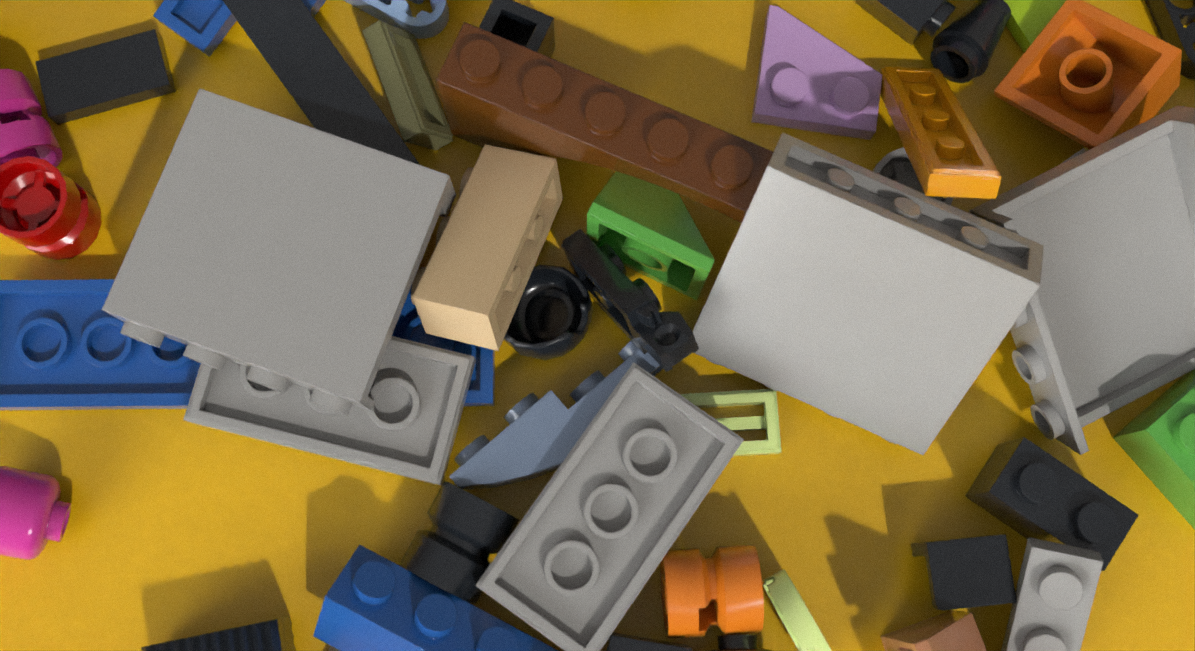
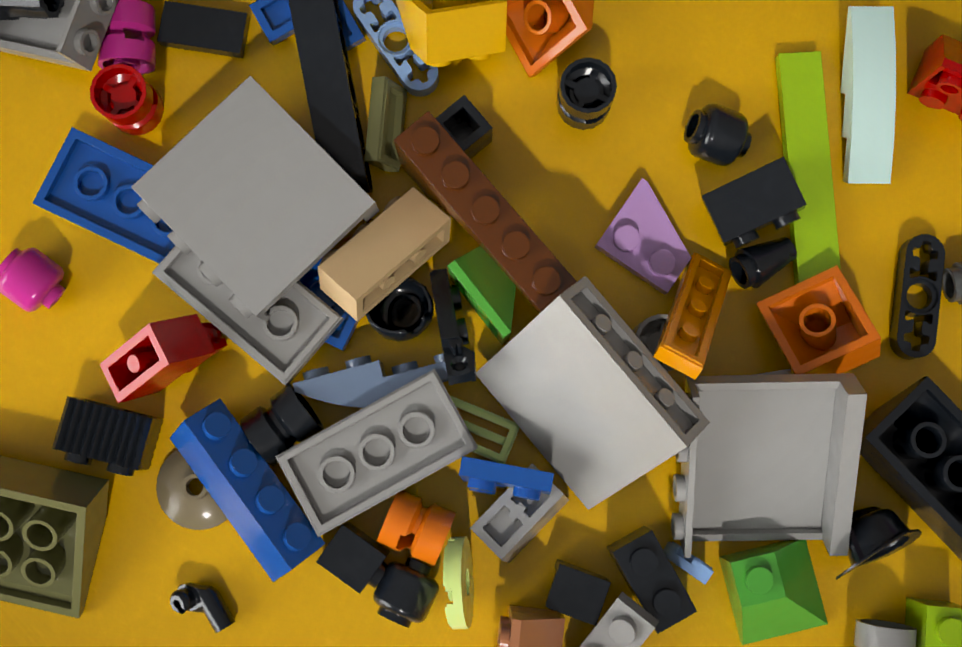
camera: 30 degrees right, 5 degrees up
(246, 528) = (160, 356): none -> red hinge
(773, 471) = (487, 476): none -> blue plate
(836, 503) = (516, 521): none -> light grey hinge
(1096, 465) = (692, 565): none -> light blue tile

